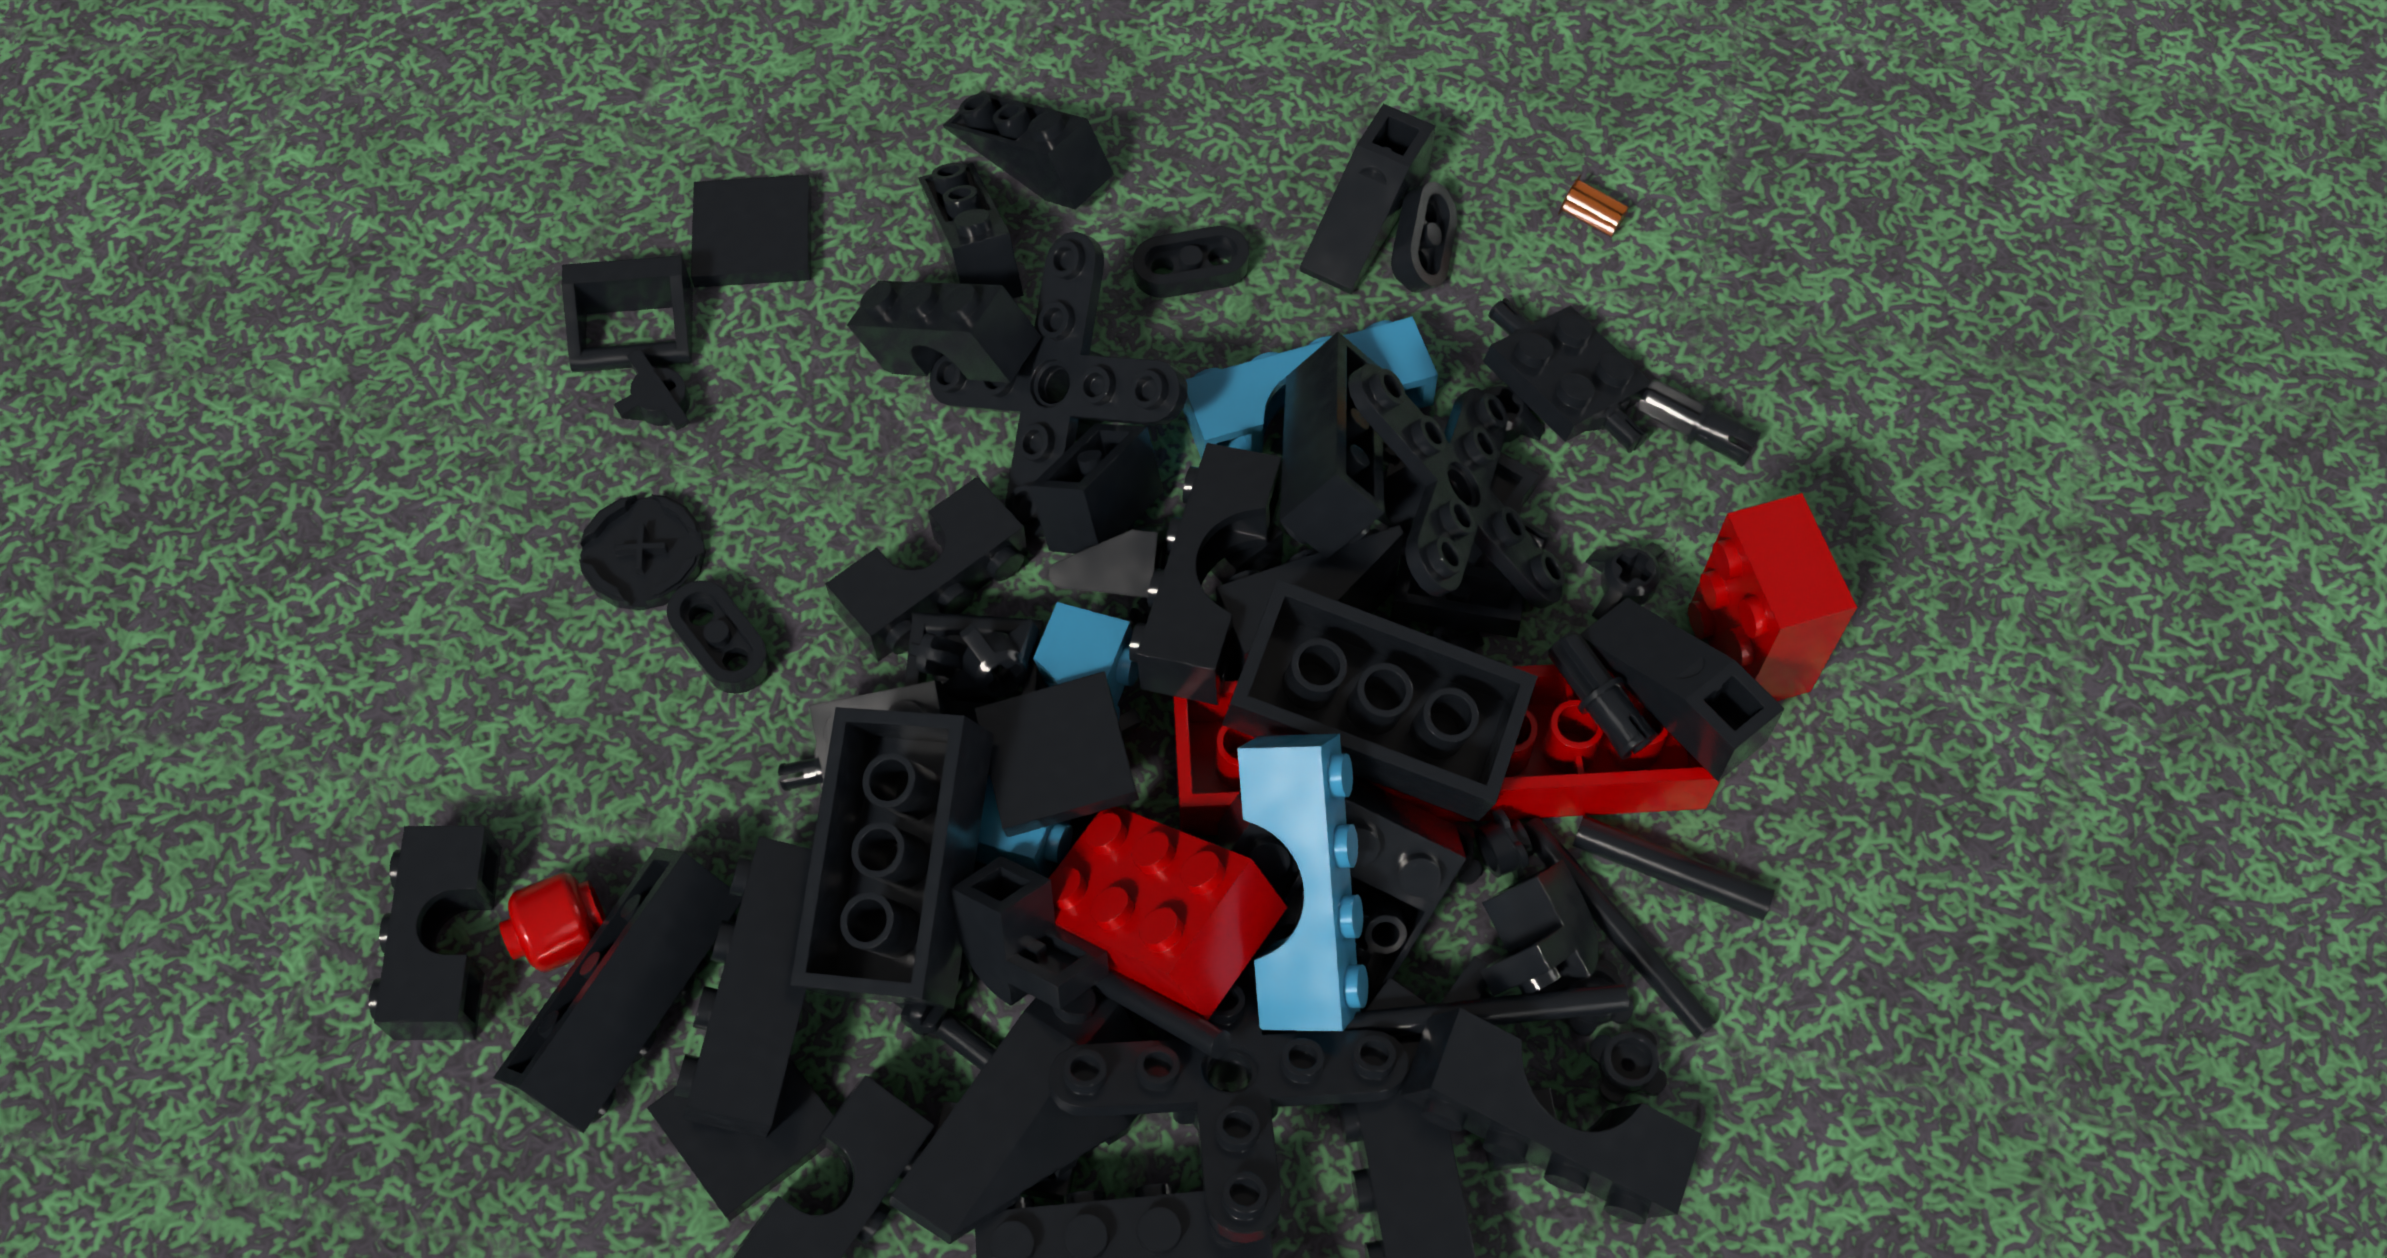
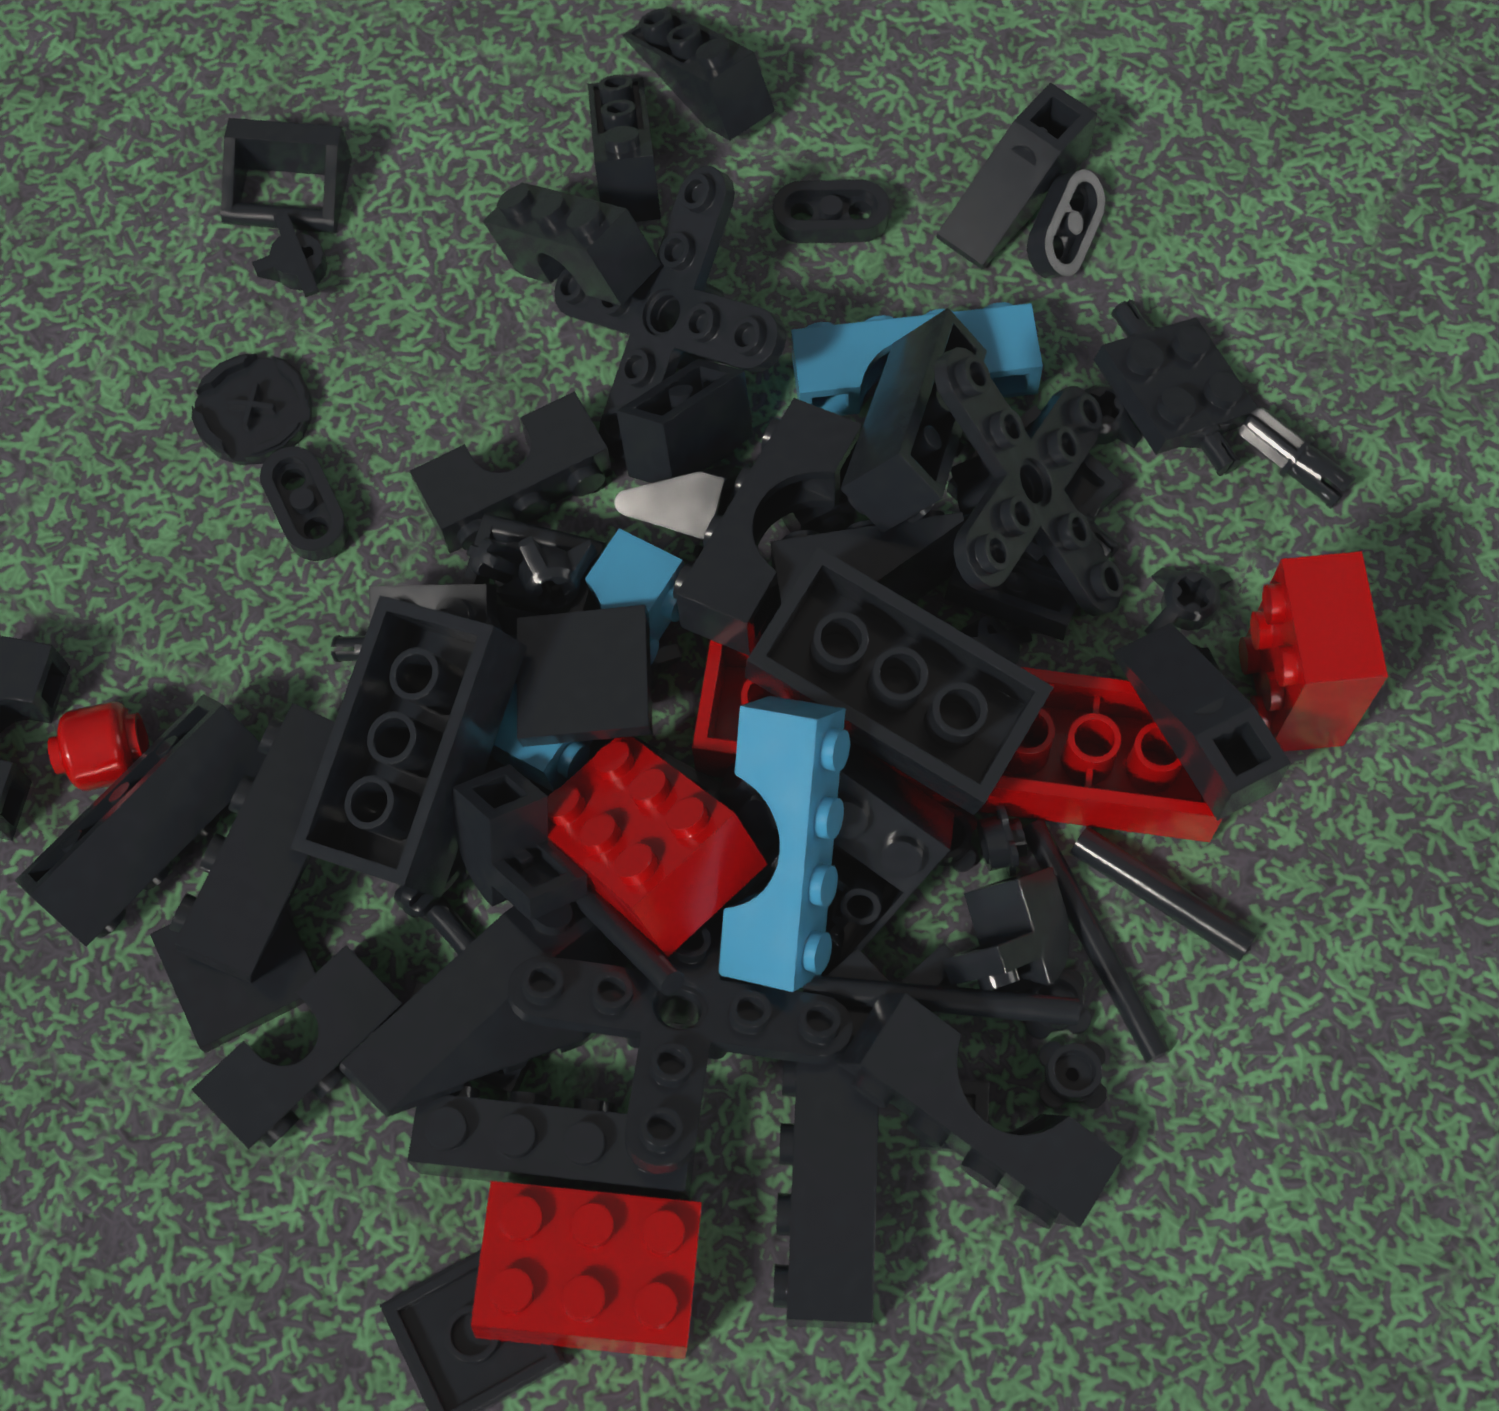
camera: 15 degrees right, 5 degrees up
(751, 231) = (417, 112): black tile -> none
(1594, 207) = (1244, 221): dark orange piece -> none
(1601, 695) = (1121, 714): black axle -> none

